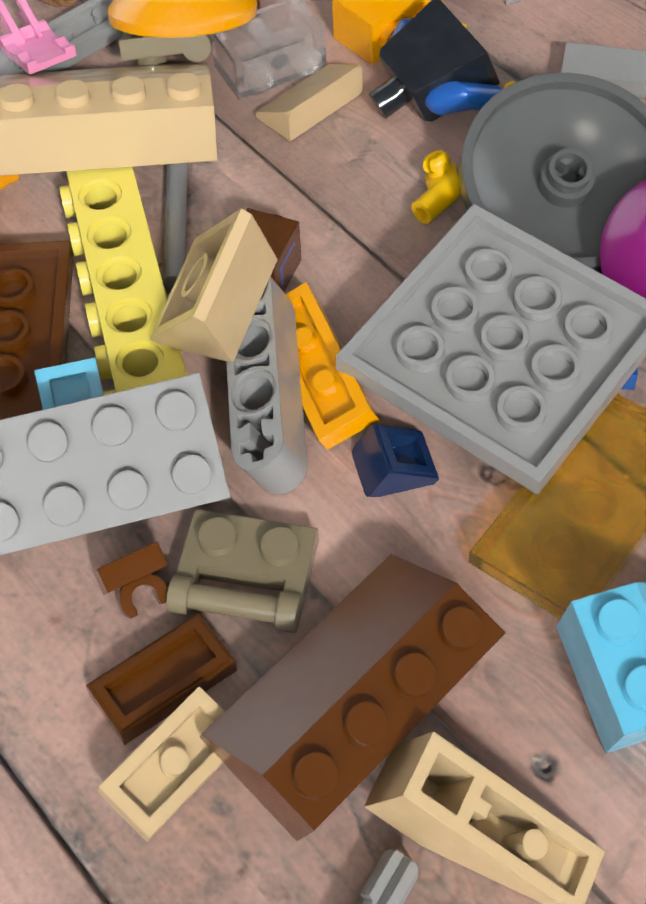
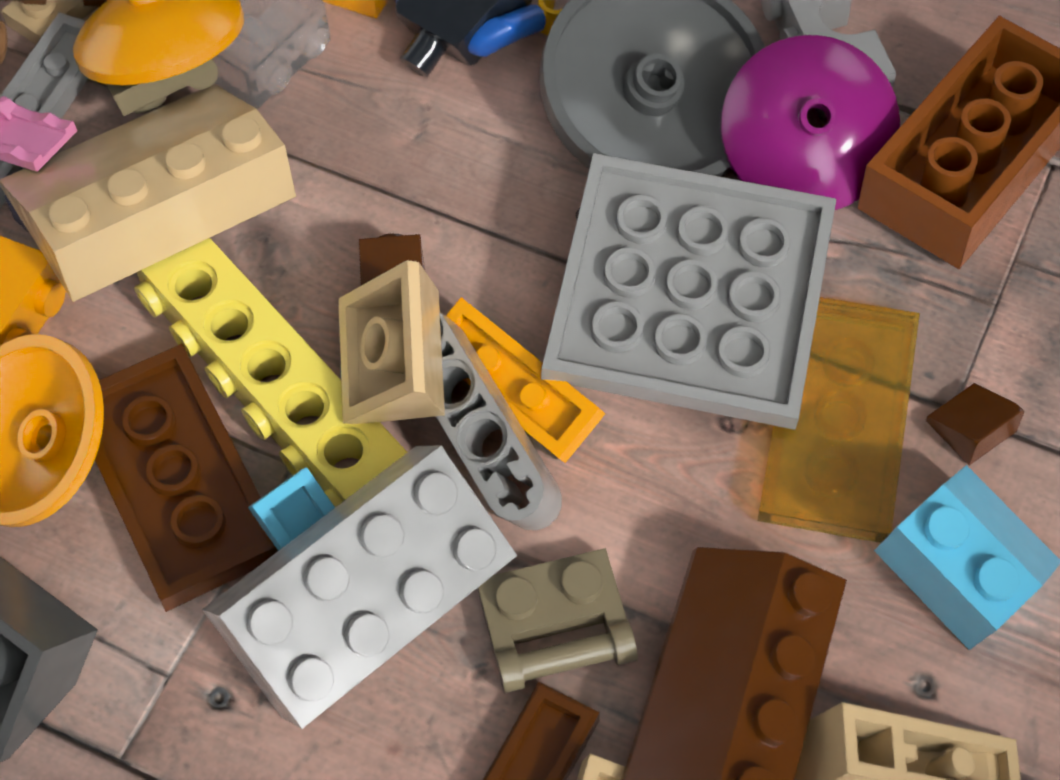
camera: 25 degrees left, 5 degrees up
(132, 572) = (450, 670): reddish brown tile -> none
(175, 222) = (276, 281): light grey bar -> none
(312, 99) = (339, 82): tan slope -> none
(393, 461) = (635, 449): dark blue slope -> none
(441, 184) = (528, 134): yellow arm -> none

